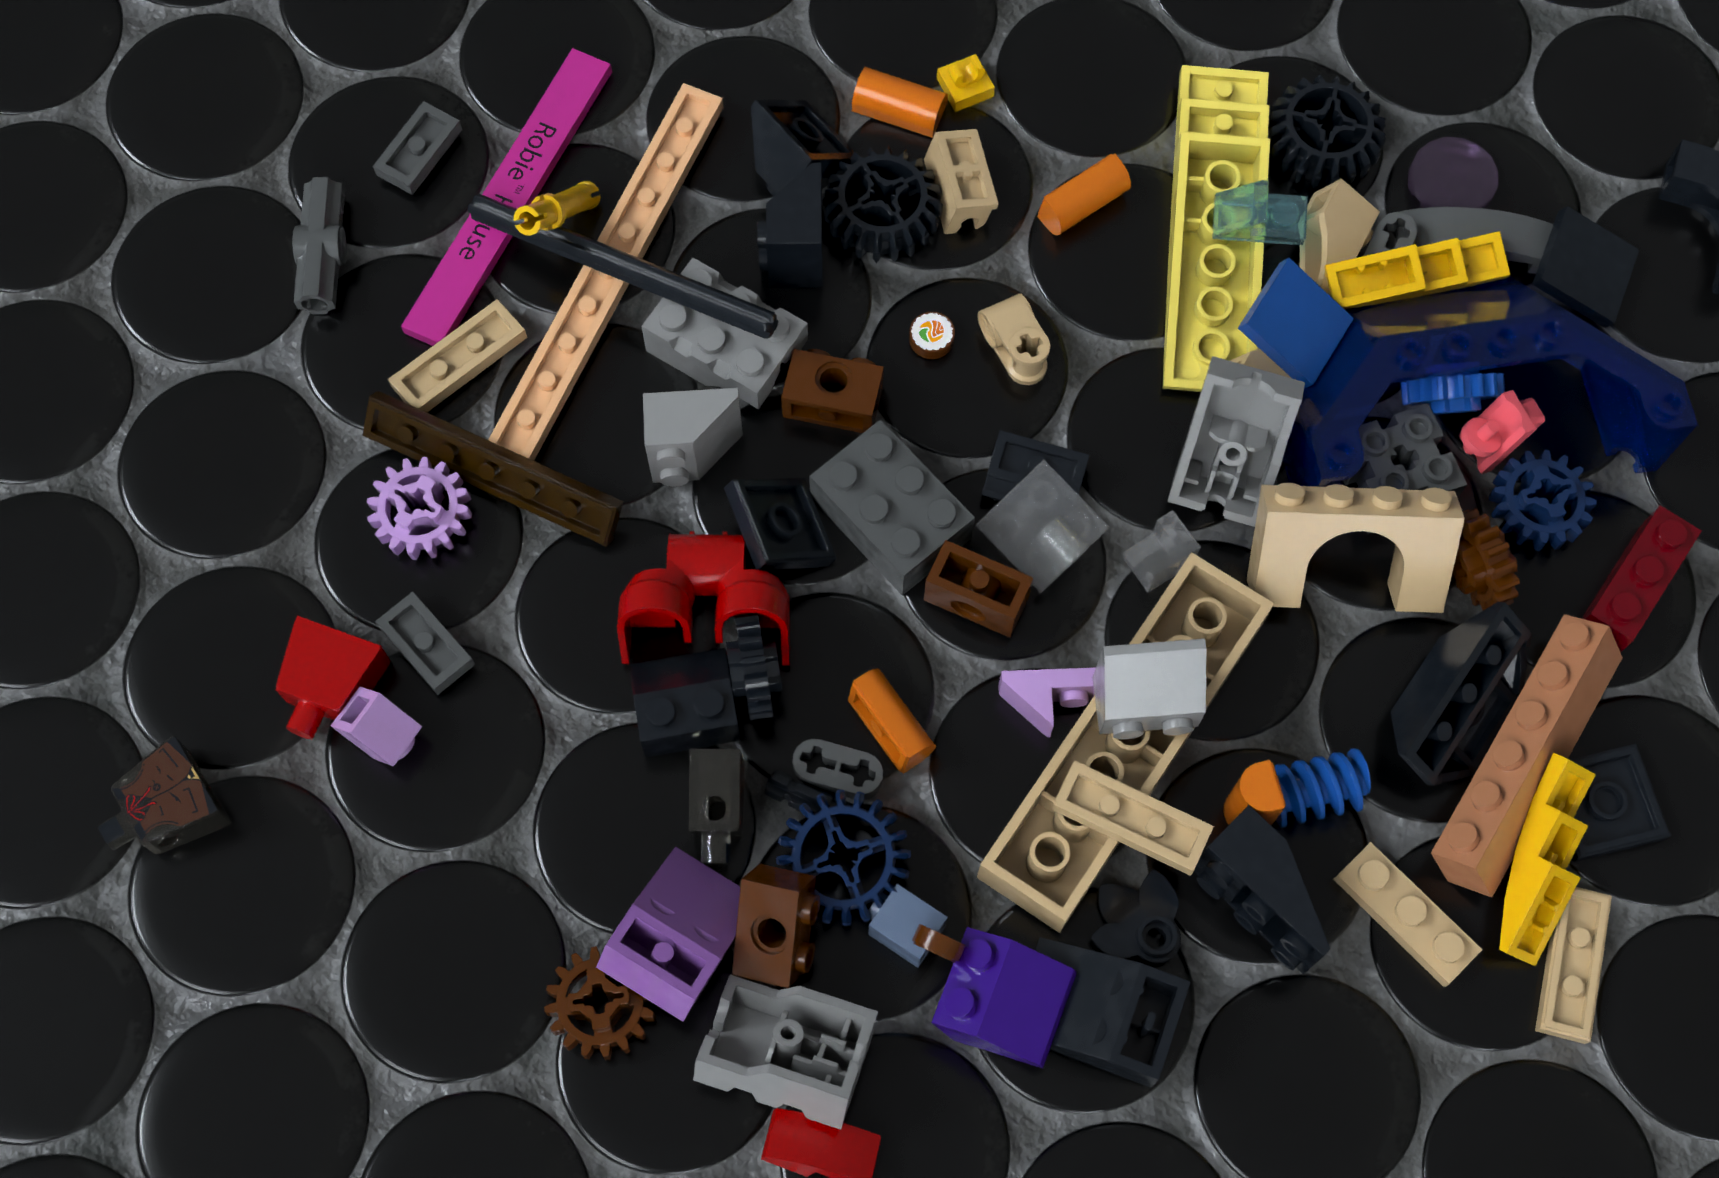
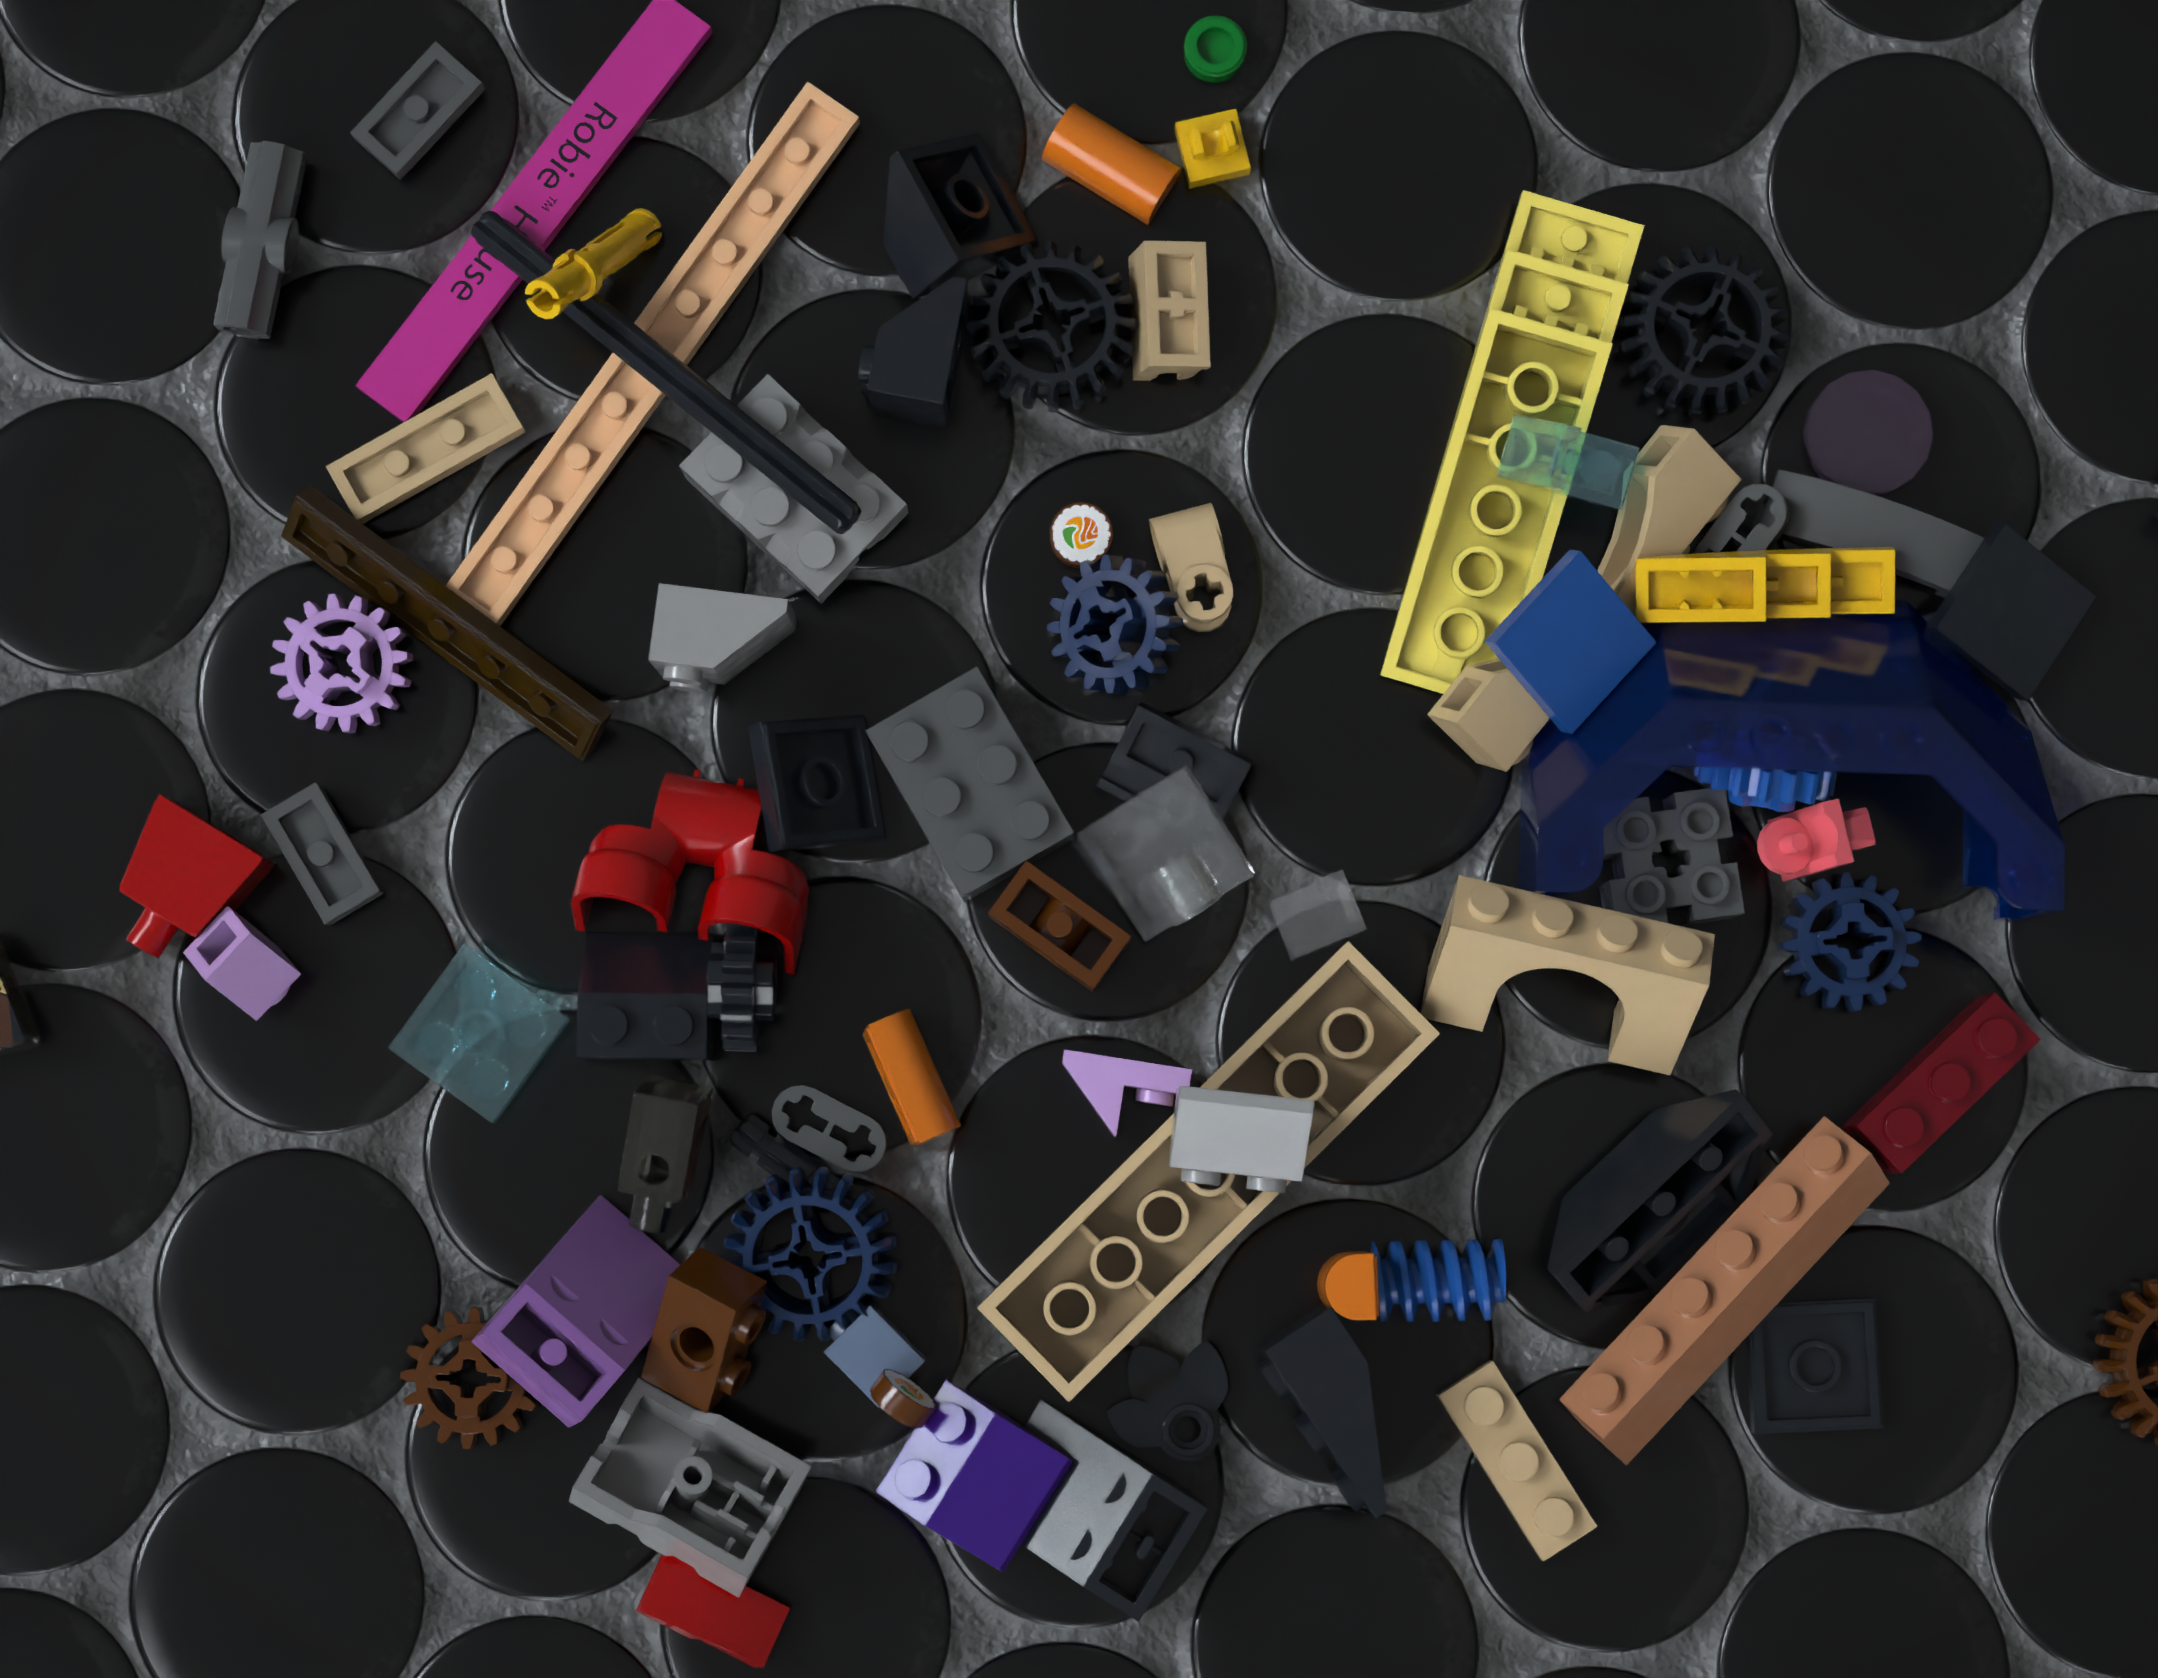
camera: 10 degrees right, 15 degrees up
(563, 748) = (479, 1033): none -> clear light blue plate
(849, 409) = (952, 626): reddish brown brick -> none
(953, 24) = (1215, 49): none -> green tile
(988, 386) = (1134, 638): none -> dark blue gear
(1084, 194) = (1339, 367): orange brick -> none
(1132, 818) = (1180, 1292): tan plate -> none
(1236, 439) = (1446, 795): light grey piece -> none
(1484, 562) = (1736, 1023): reddish brown gear -> none
(1538, 876) = (1694, 1449): yellow slope -> none
(1574, 968) = (1711, 1563): tan tile -> none

